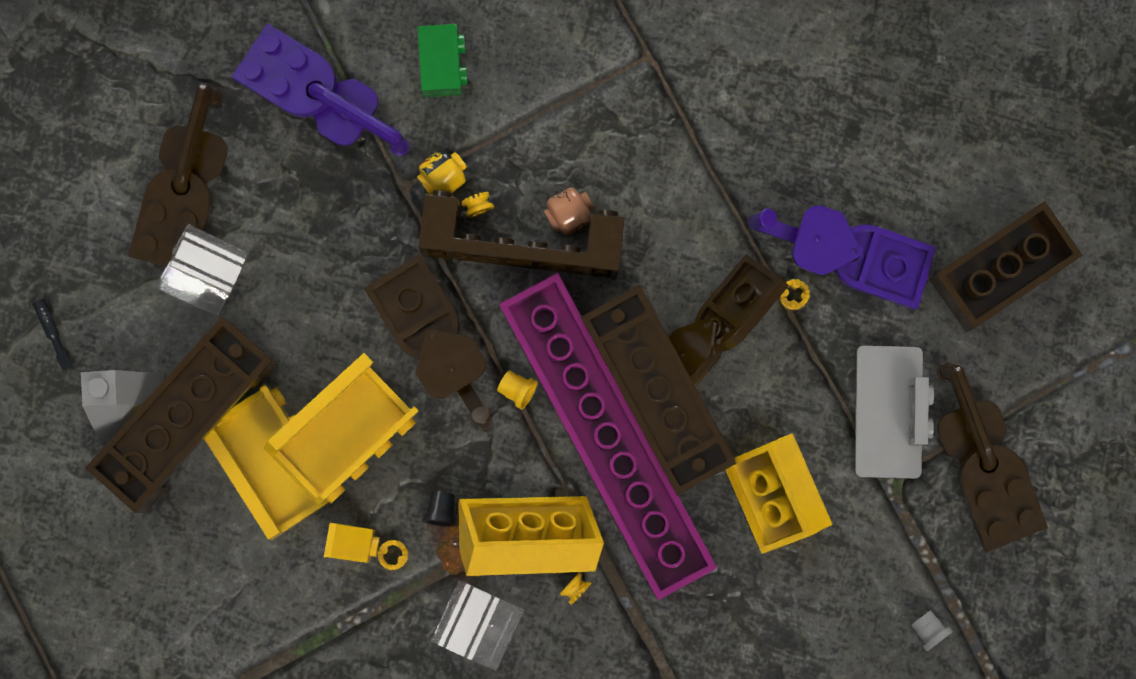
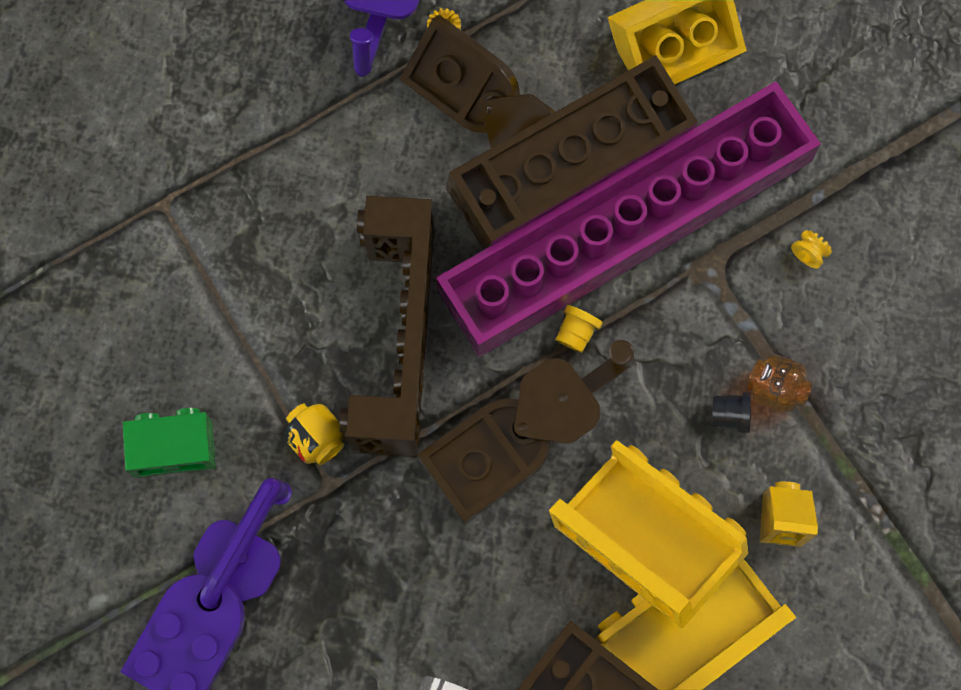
camera: 85 degrees left, 10 degrees down
(384, 550) = (797, 456): yellow bush -> none
(477, 205) = (351, 385): yellow bush -> none
(477, 625) = (868, 360): slope -> none
(528, 535) = (758, 299): yellow slope -> none
(569, 211) = (356, 278): nougat head -> none

